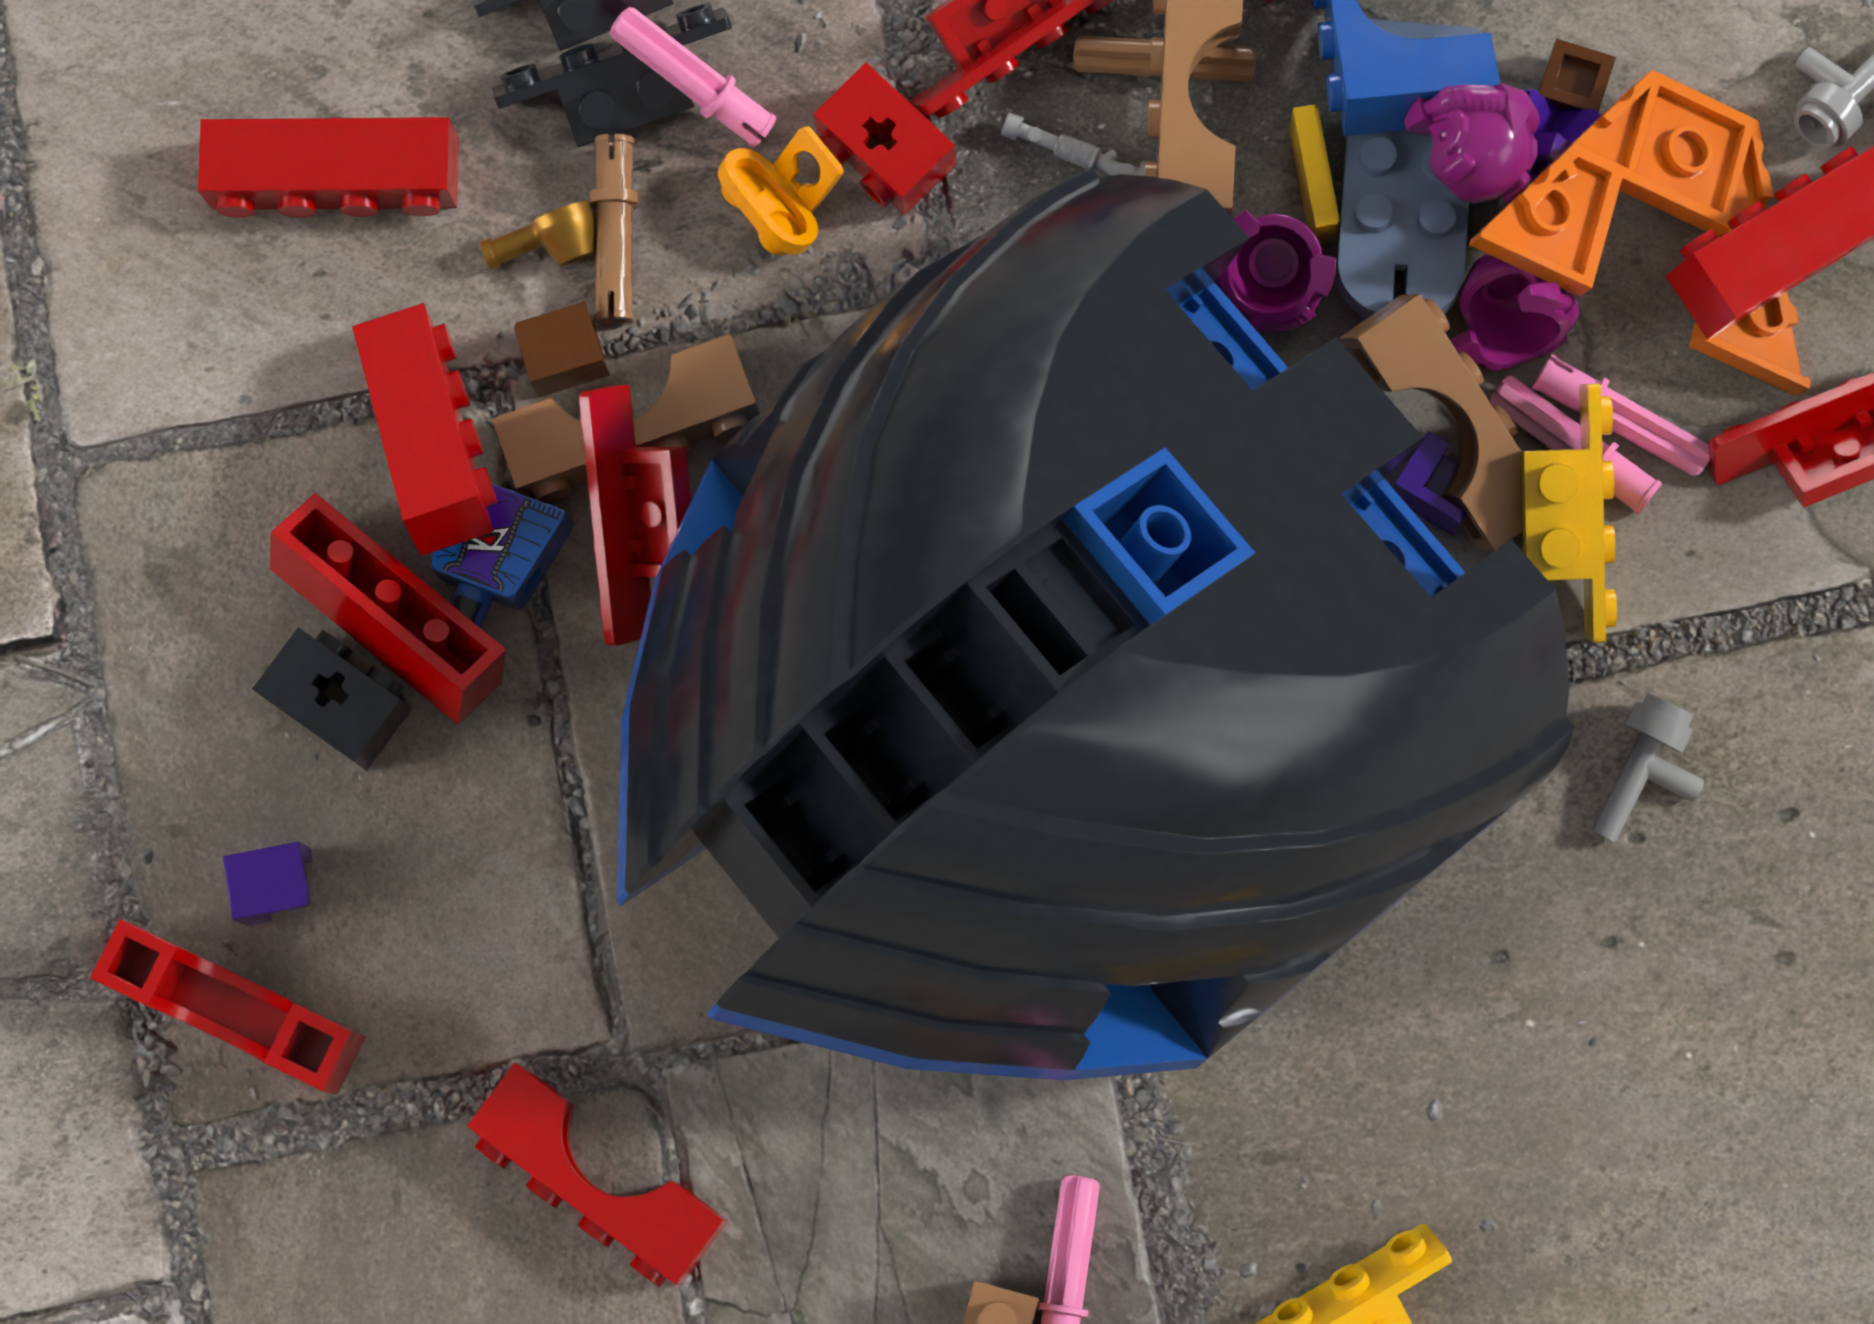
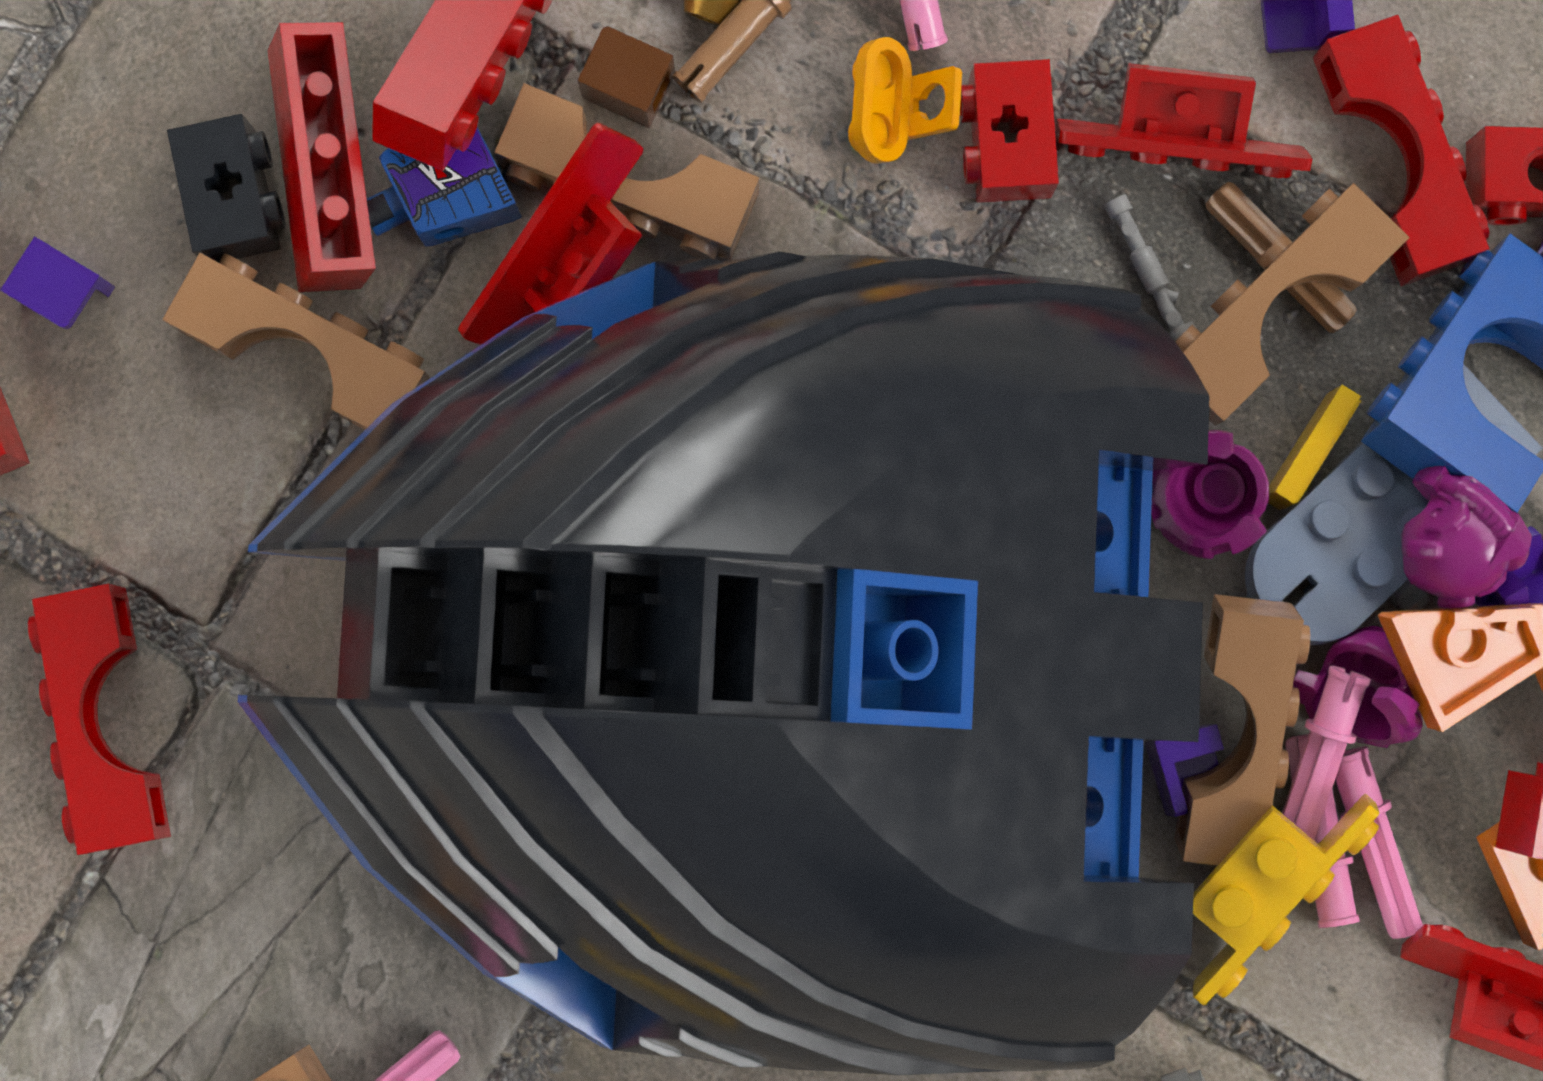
camera: 30 degrees right, 5 degrees up
(418, 783) = (232, 312): none -> medium nougat arch
(1521, 377) = (1324, 748): none -> bright pink axle

